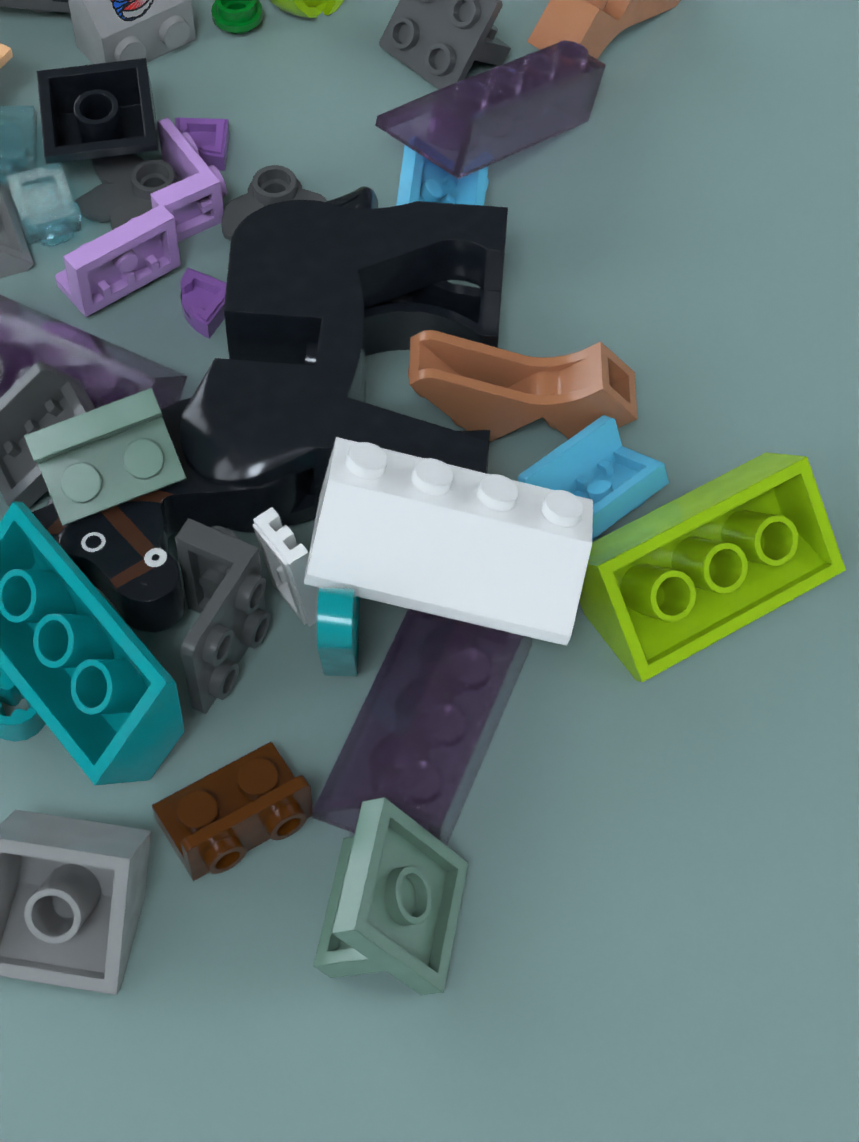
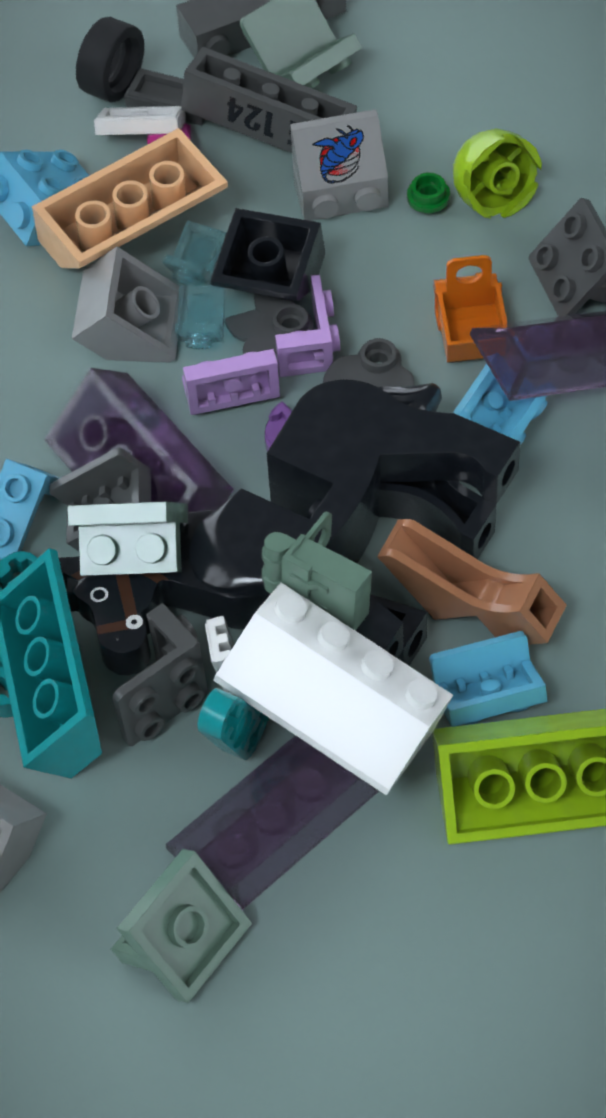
camera: 30 degrees right, 0 degrees up
(210, 138) = (350, 298): medium lavender tile -> none
(234, 811) = (112, 822): reddish brown bracket -> none
(345, 108) = (467, 304): none -> orange piece
(374, 409) = (318, 573): none -> sand green piece

